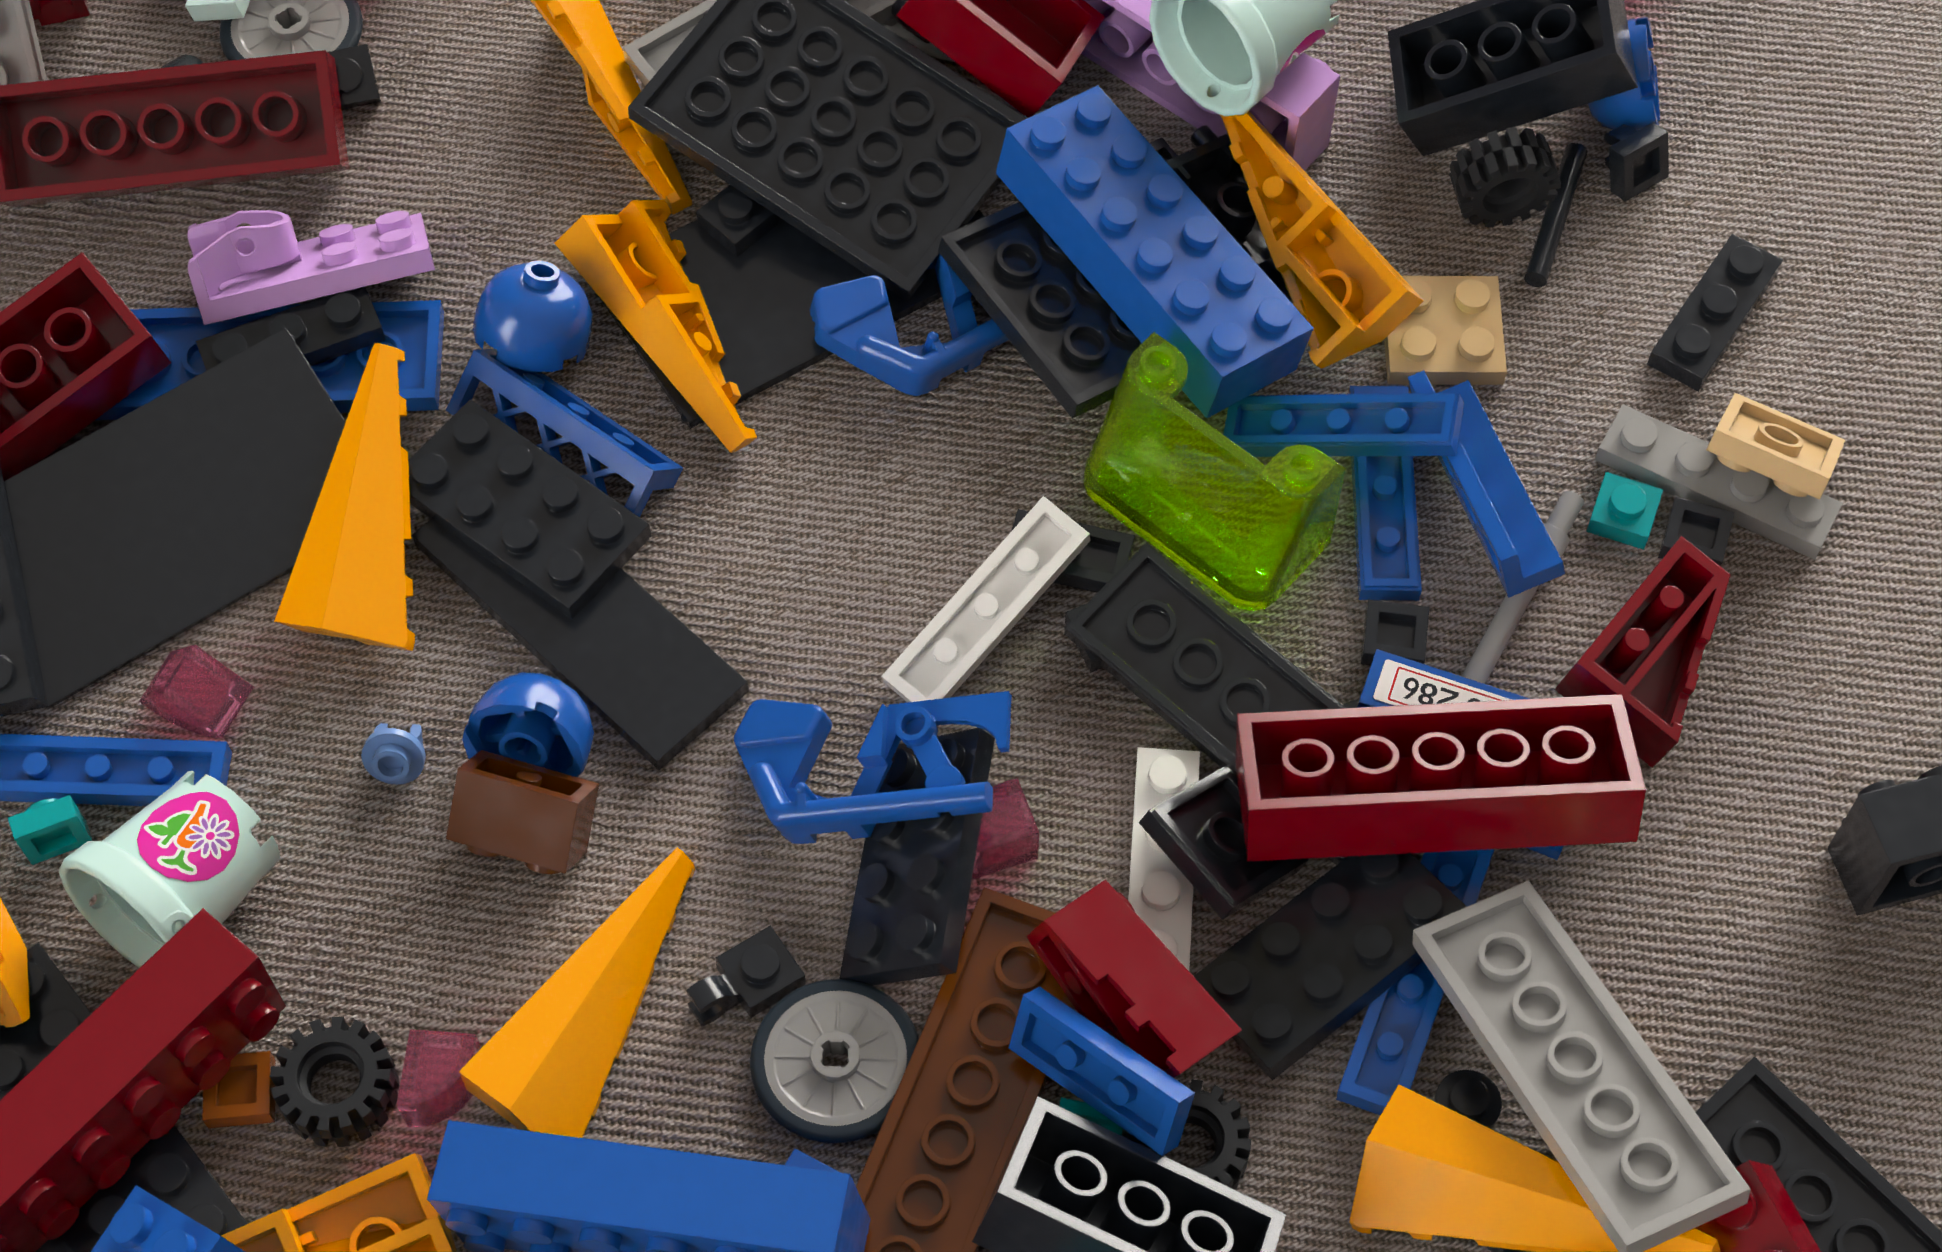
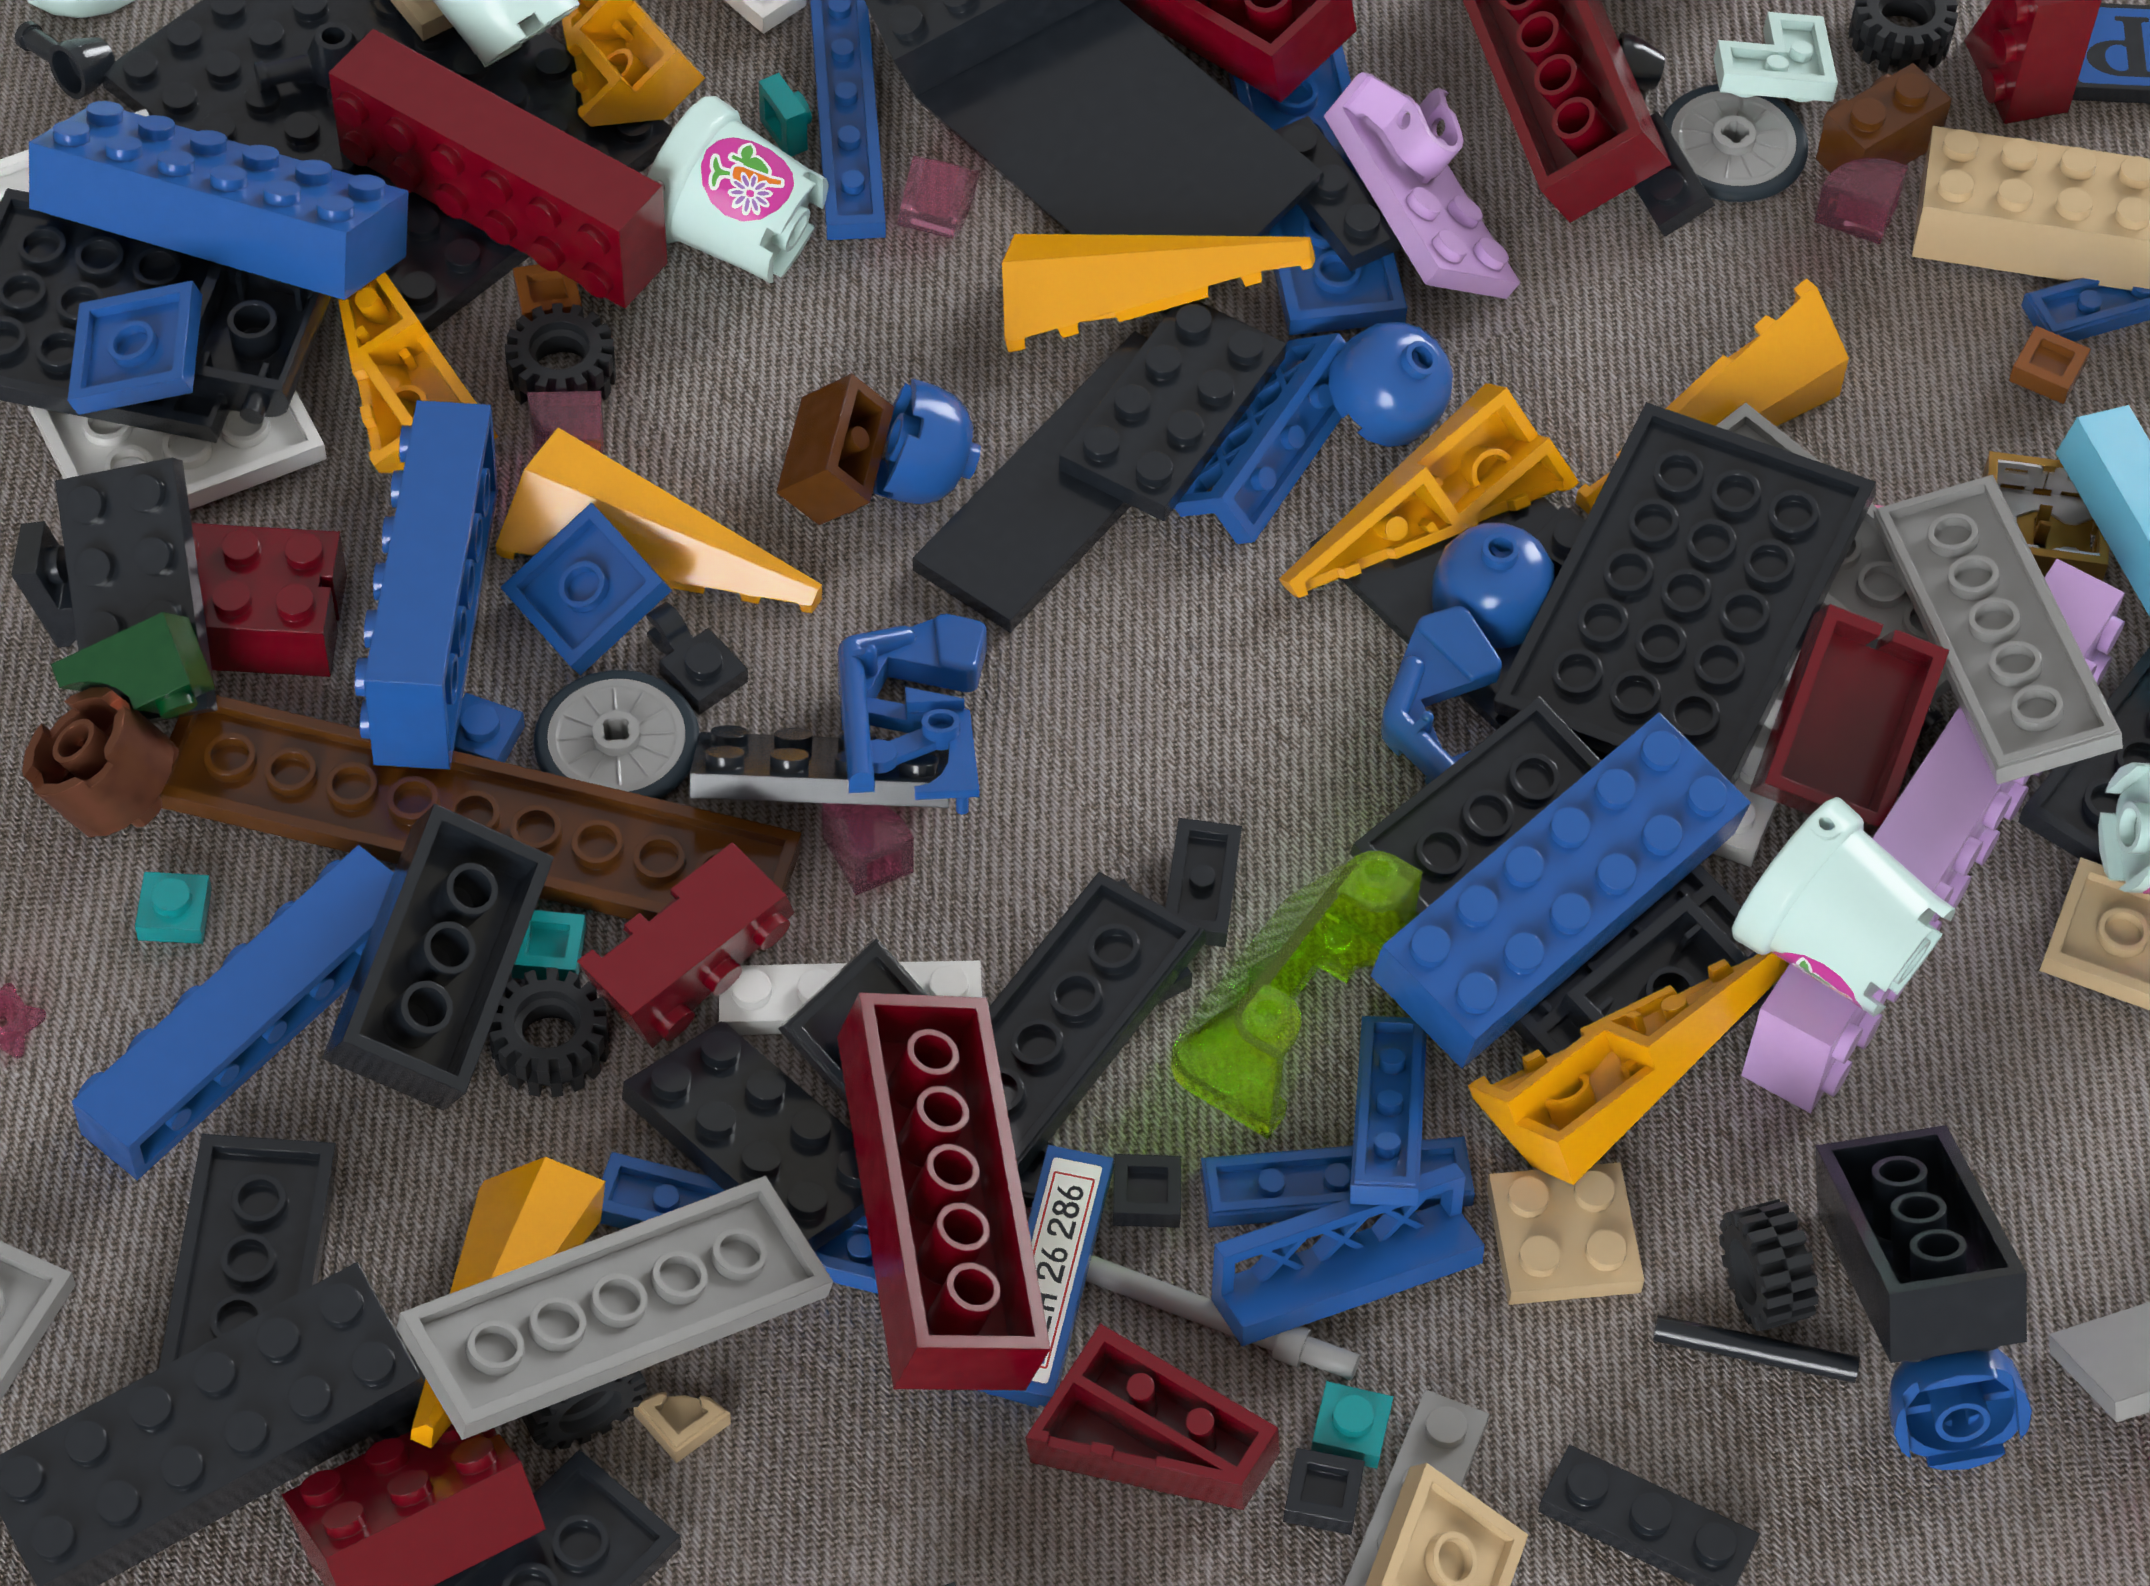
camera: 80 degrees right, 5 degrees down
(394, 754) = (893, 353): medium blue plate -> none
(658, 1067) = (586, 589): none -> blue plate
(772, 276) = (1498, 577): none -> blue cylinder
(987, 605) = (1114, 803): white plate -> none
(1101, 1071) = (594, 919): blue plate -> none
(1636, 159) = (1842, 1421): black tile -> none

